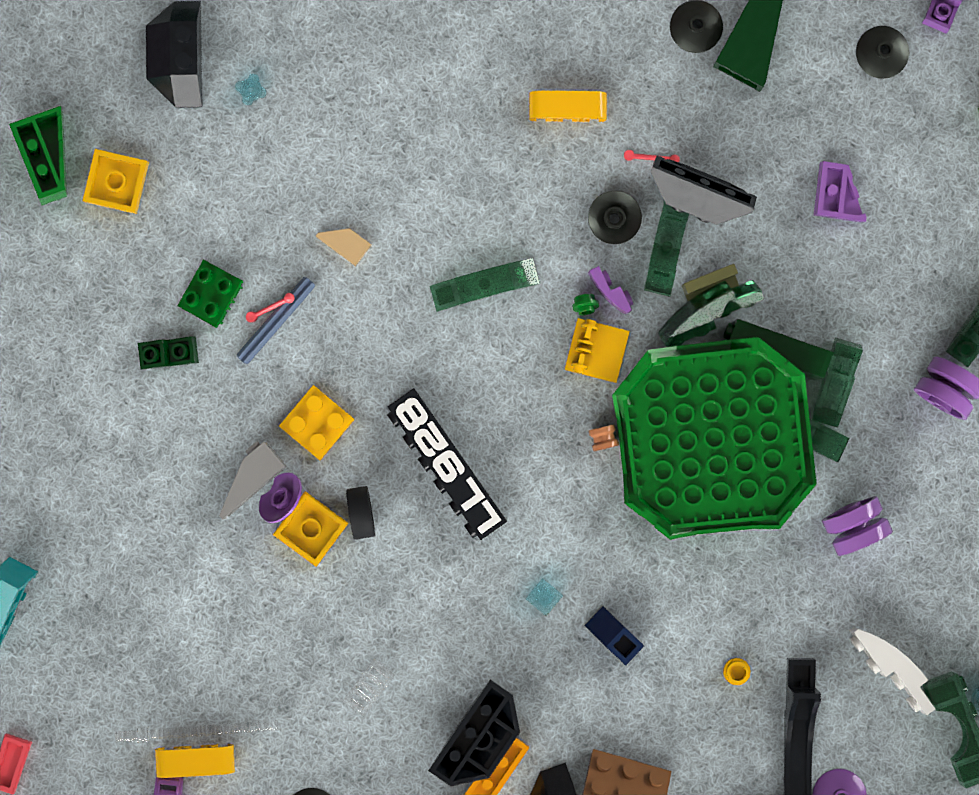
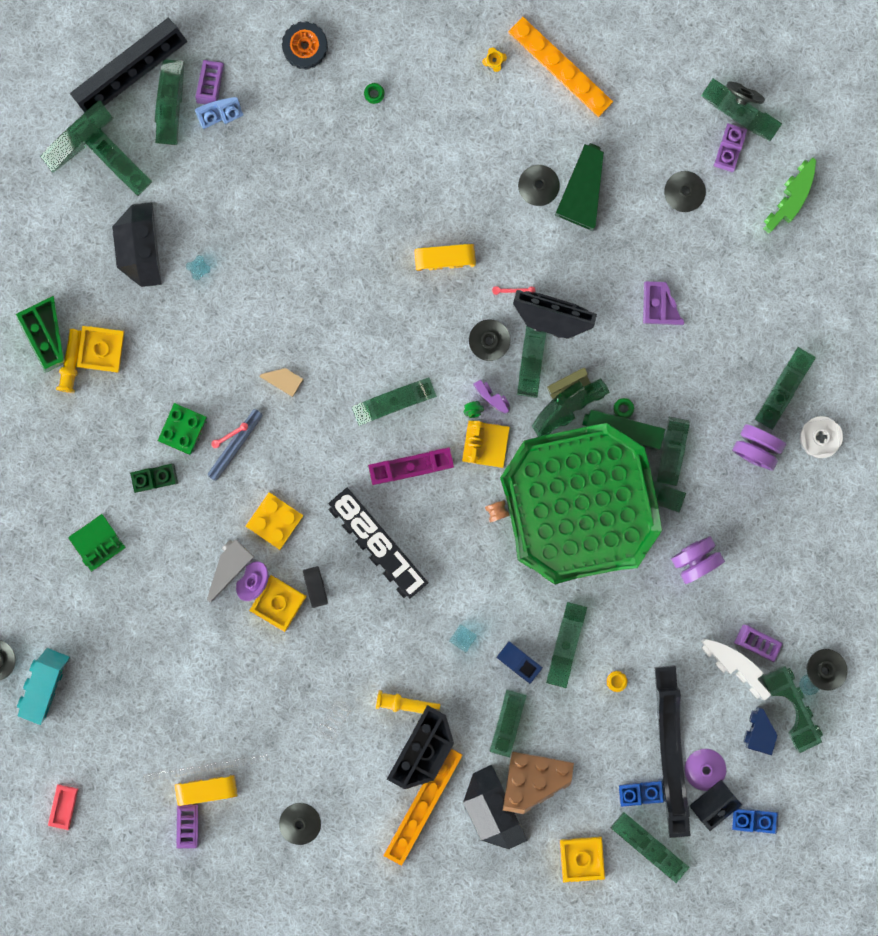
camera: 10 degrees left, 0 degrees up
(71, 206) = (69, 370): none -> yellow pin
(86, 428) = (96, 542): none -> green hinge
(451, 671) = (398, 703): none -> yellow pin
(498, 369) = (411, 466): none -> magenta slope
(591, 713) = (507, 723): none -> clear green slope
(676, 618) = (566, 645): none -> clear green slope
(786, 317) = (623, 401): none -> green plate
(909, 629) = (742, 636): none -> medium lavender slope
(917, 759) = (761, 734): none -> dark blue slope

